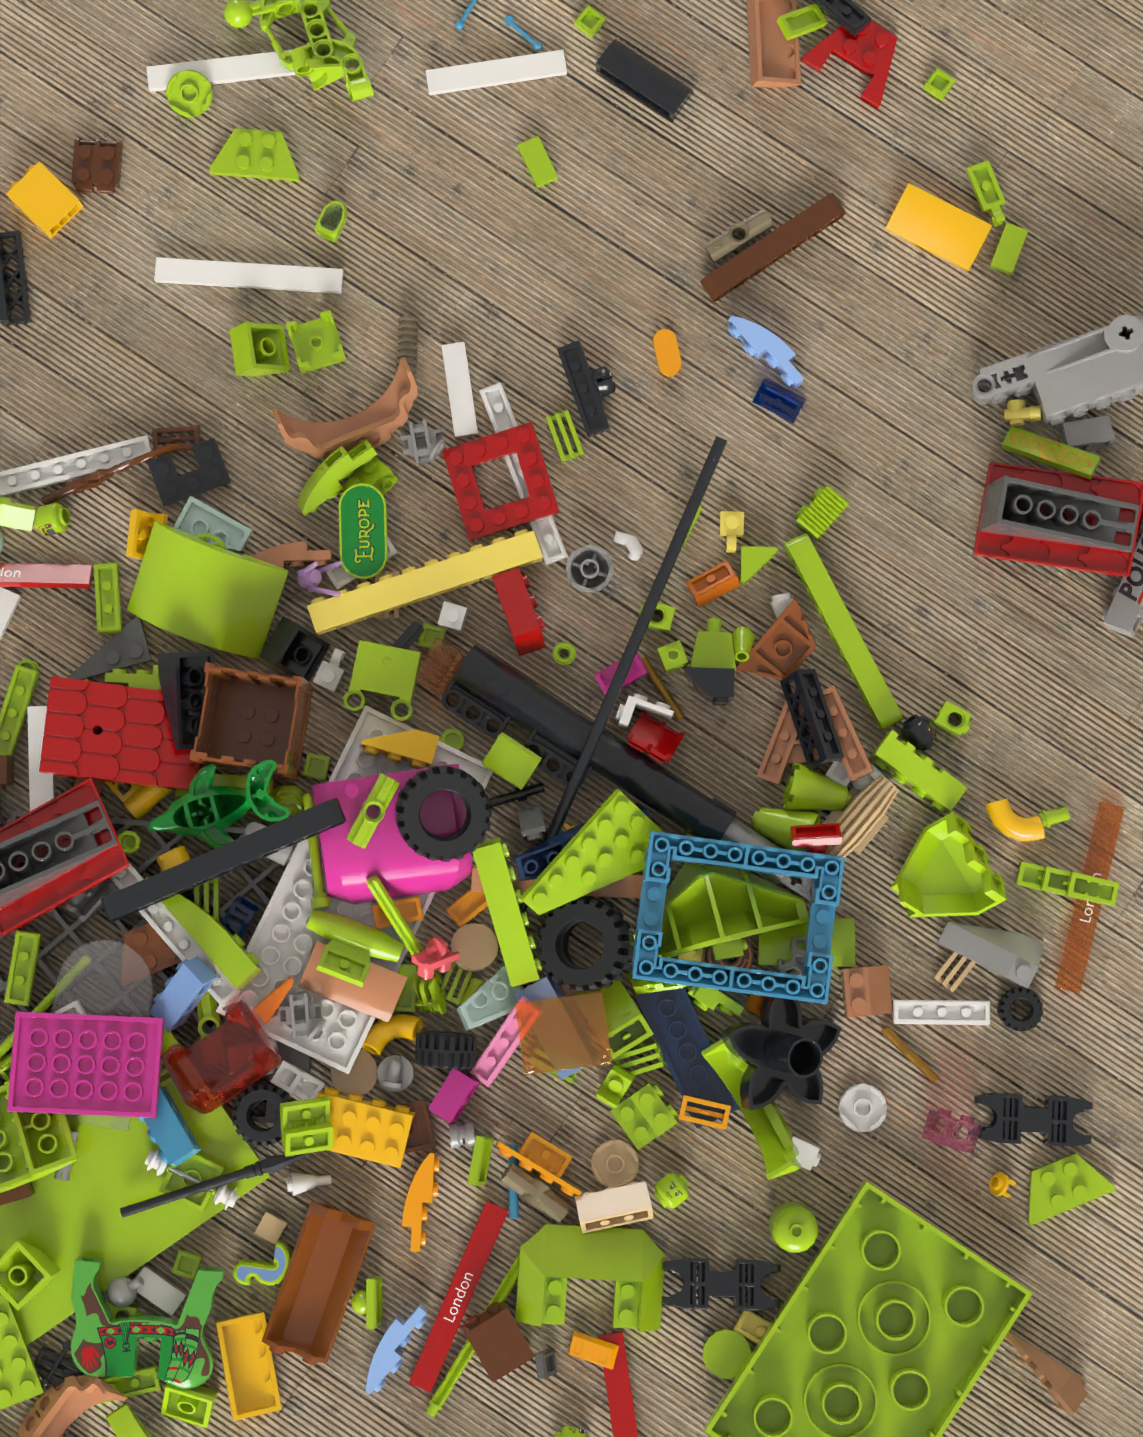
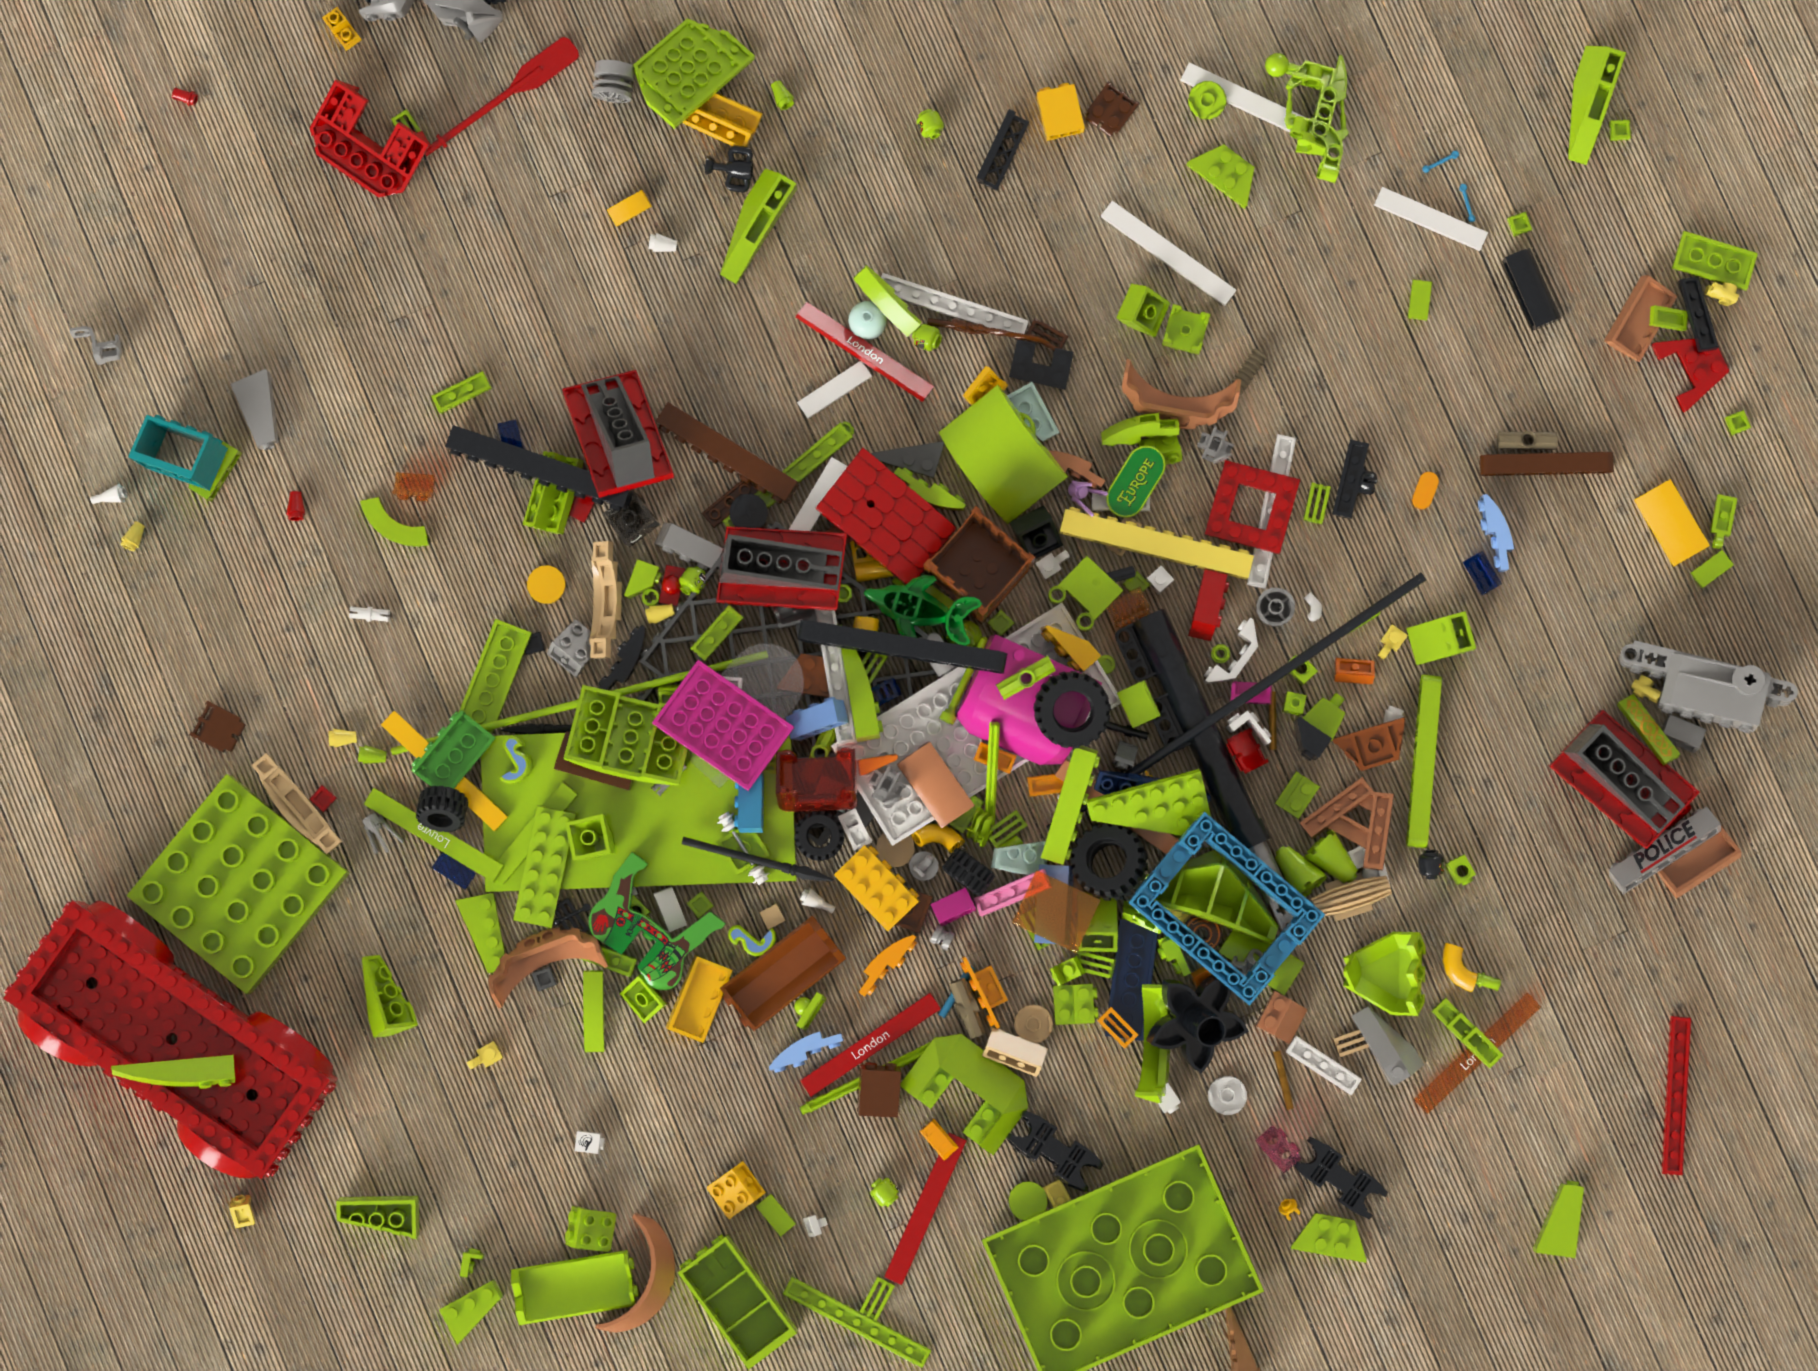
camera: 35 degrees right, 0 degrees up
(108, 598) = (930, 416): lime tile -> none
(123, 1291) = (648, 894): light grey piece -> none
(183, 693) = (947, 511): black wedge -> none
(306, 1126) = (843, 861): lime slope -> none
(331, 221) = (1250, 252): rock -> none
(351, 946) = (950, 759): lime plate -> none
(435, 957) = (1000, 804): coral hips -> none
(459, 390) = (1264, 425): white tile -> none
(476, 946) = (1031, 815): tan tile -> none
(480, 1160) = (940, 966): lime tile -> none
(545, 1363) = (901, 1127): dark grey tile -> none
(580, 615) = (1248, 633): none -> white slope
(671, 1190) = (1061, 1066): lime head -> none
(729, 949) = (1205, 927): lime brick -> none
(735, 749) = (1297, 795): none -> lime plate
(742, 643) = (1349, 724): lime cone -> none
(753, 559) = (1393, 672): lime slope -> none
(780, 493) = (1441, 638): none -> lime slope
(793, 1227) = (1128, 1144): lime cylinder -> none
(815, 715) = (1367, 806): black fence -> none
(816, 837) = (1313, 888): red tile -> none
(821, 512) = (1461, 669): lime brick -> none
(917, 772) = (1413, 891): lime wedge -> none
(1005, 1012) = (1391, 1098): black tyre -> none

